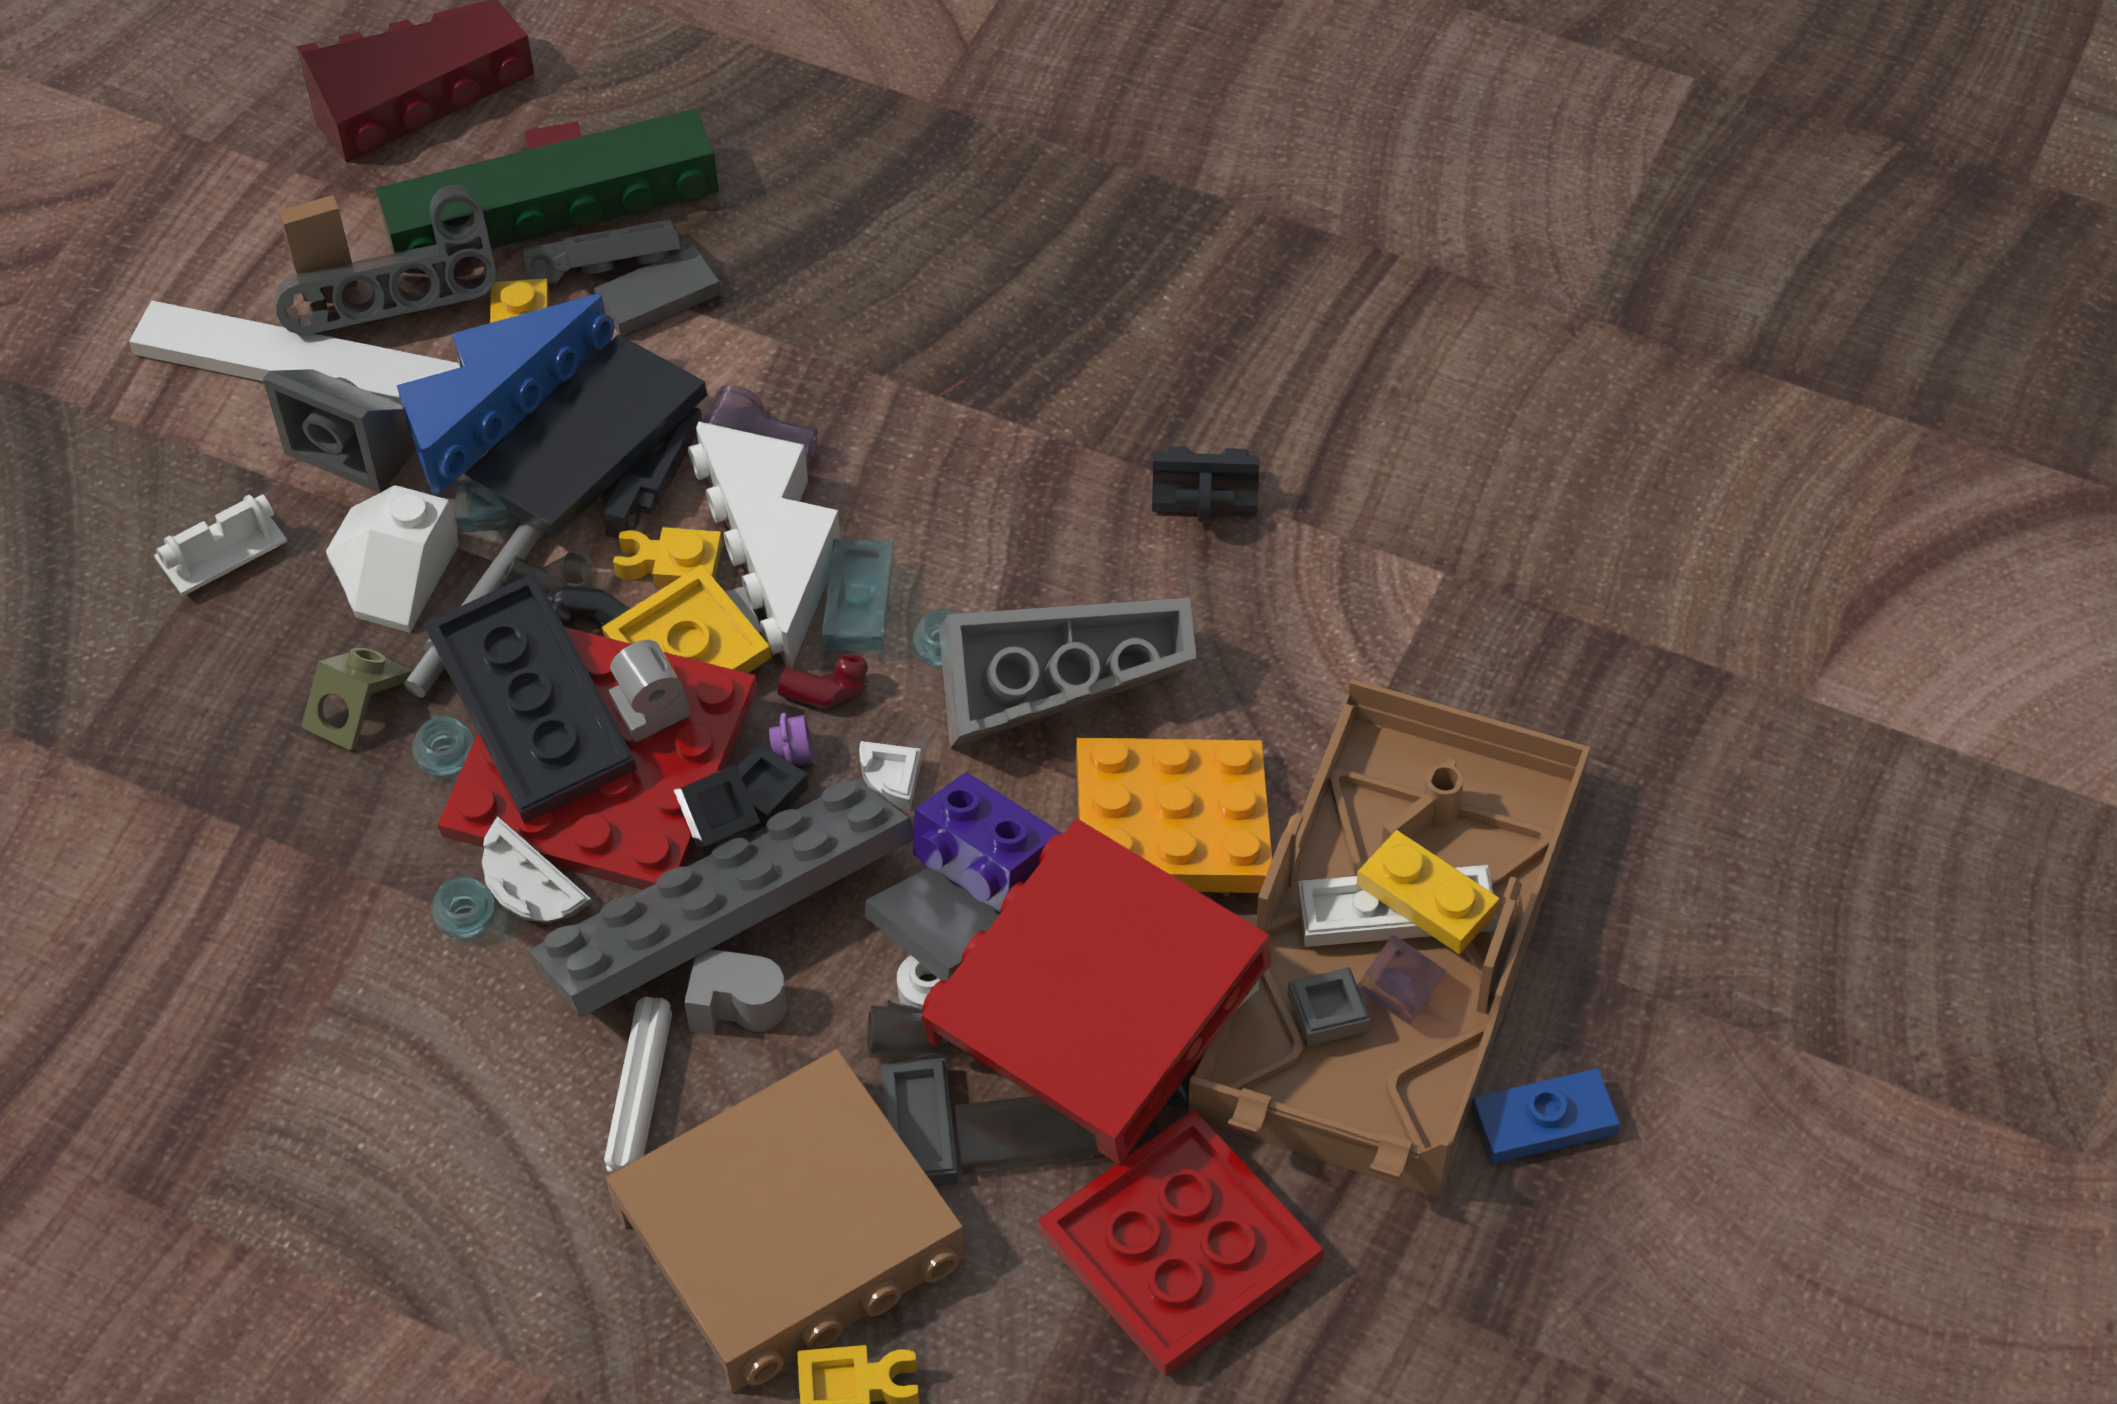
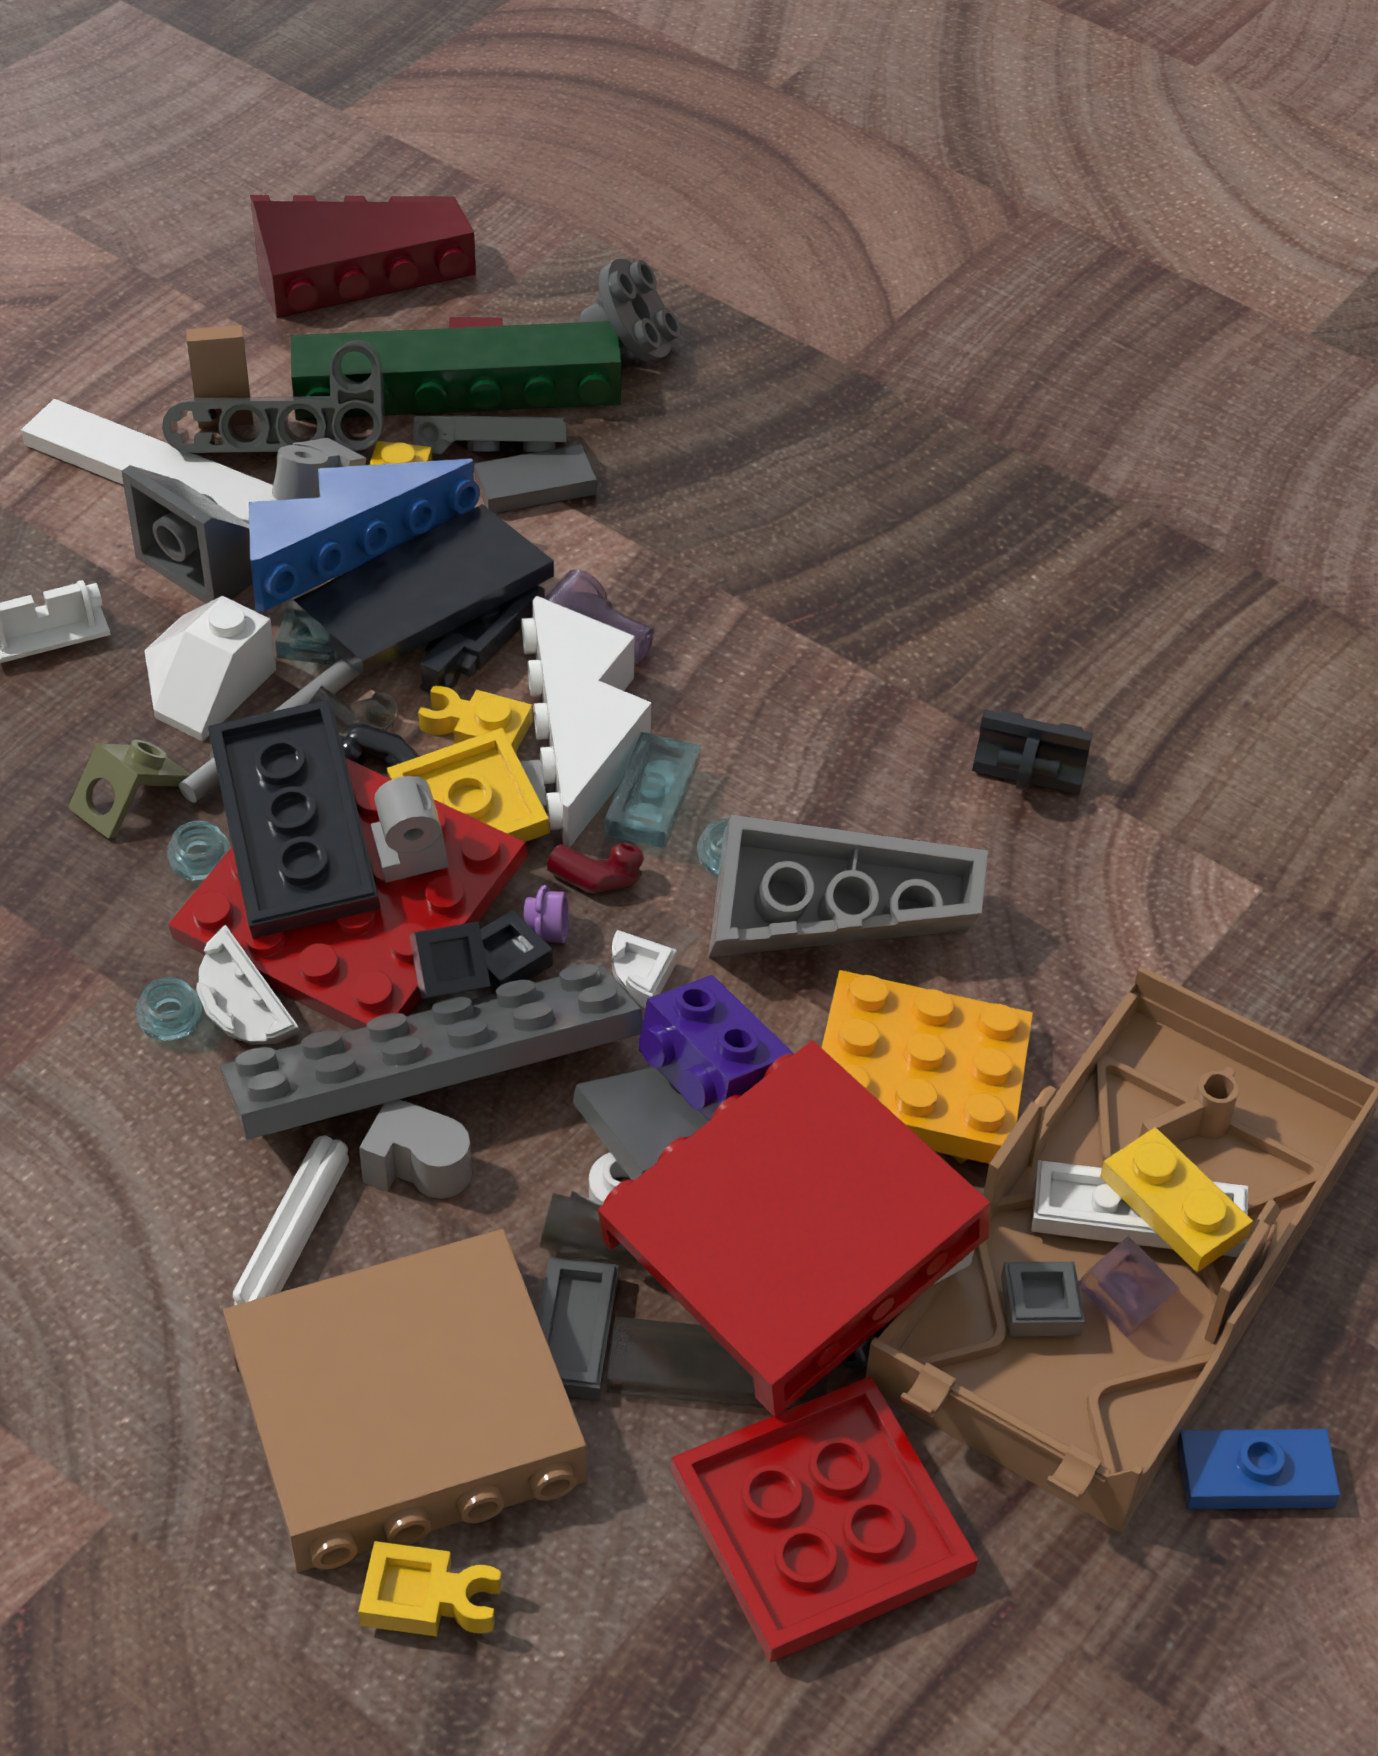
camera: 10 degrees right, 5 degrees down
(431, 326) = (299, 465): none -> light grey leg
(710, 91) = (634, 310): none -> dark grey plate

